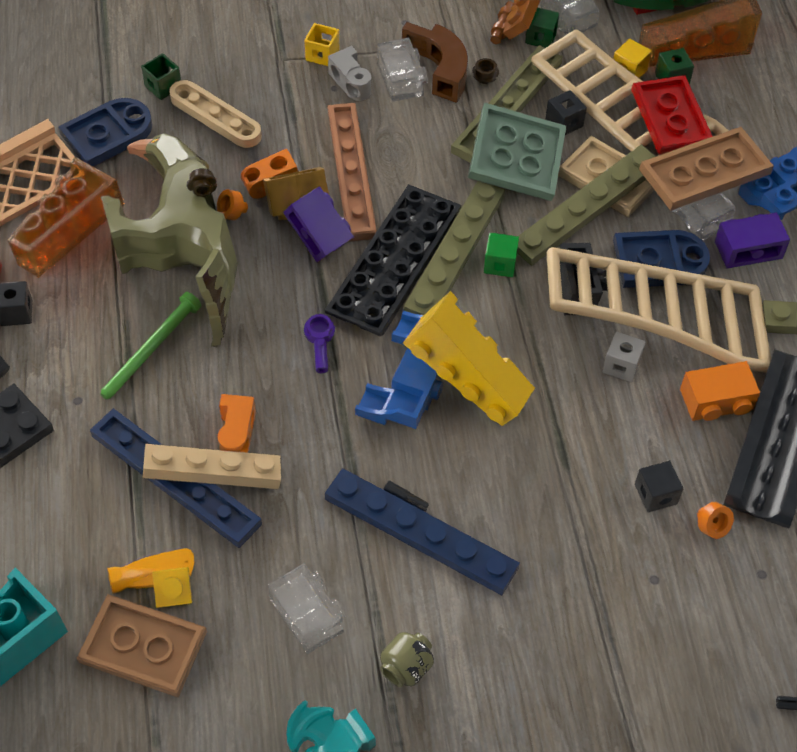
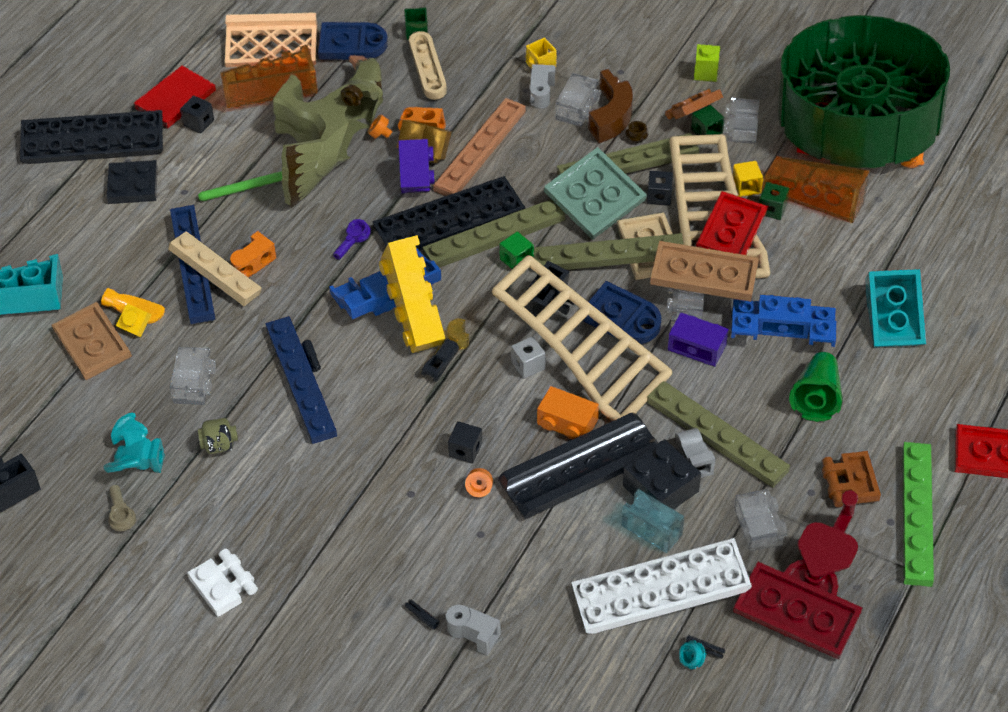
camera: 40 degrees right, 5 degrees down
(540, 403) = (455, 341): none -> black piece

